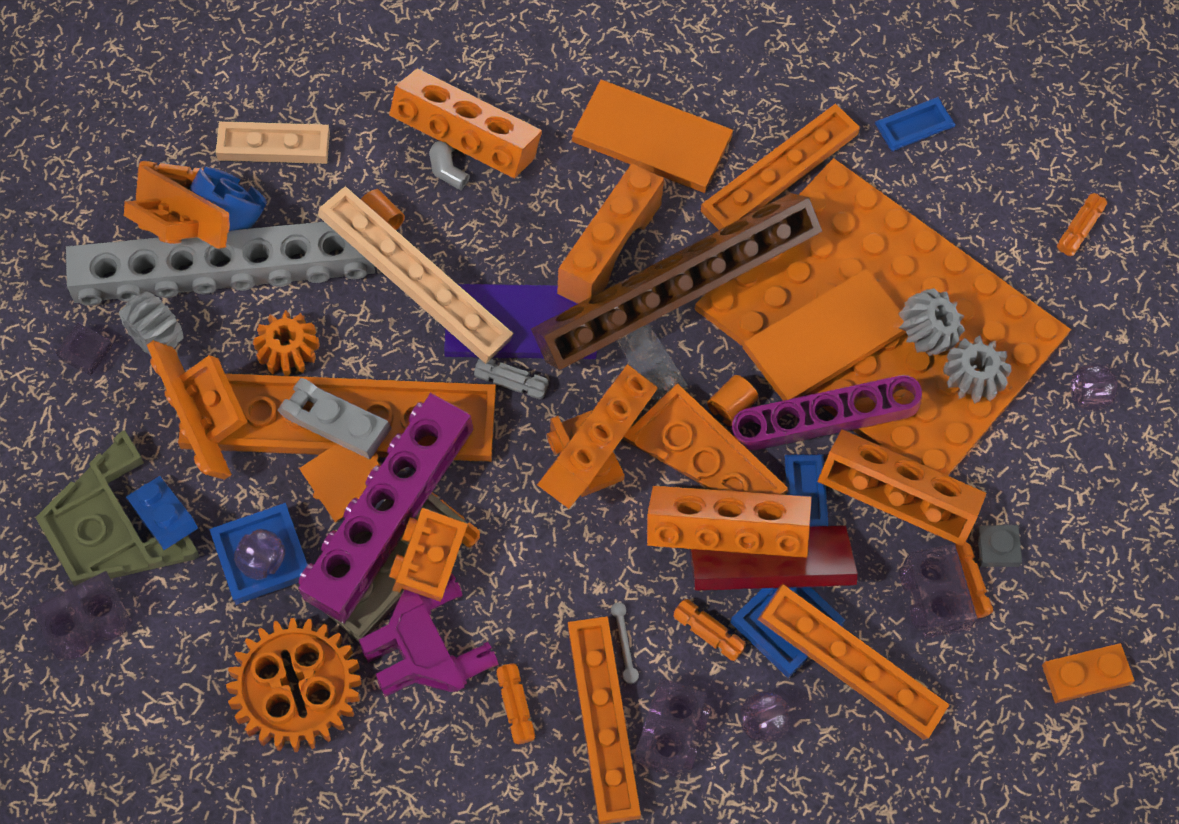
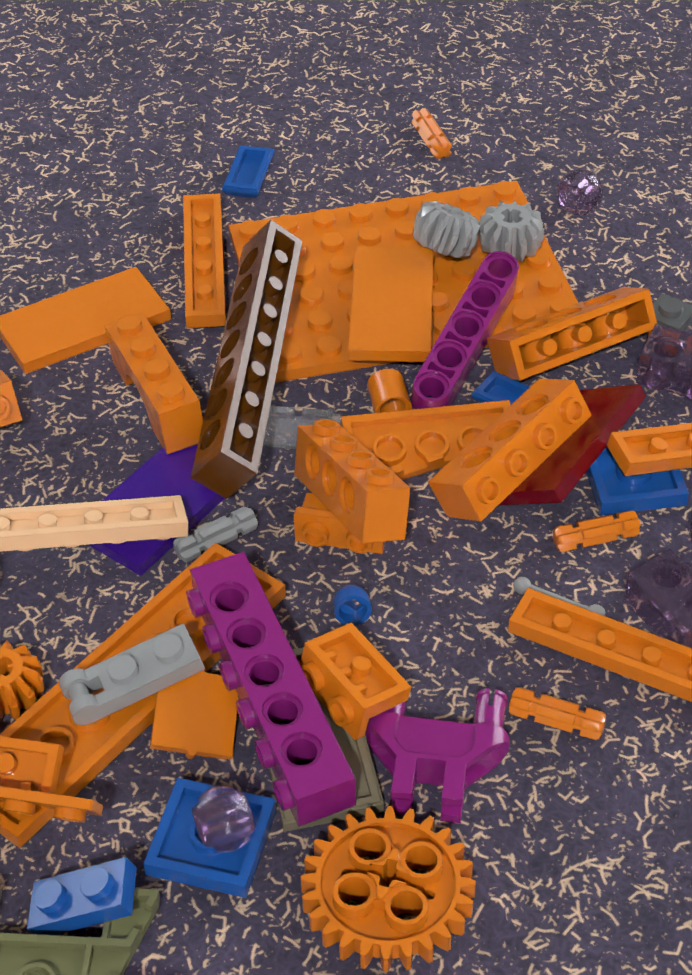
camera: 50 degrees left, 20 degrees down
(511, 509) = (346, 610): none -> blue hinge

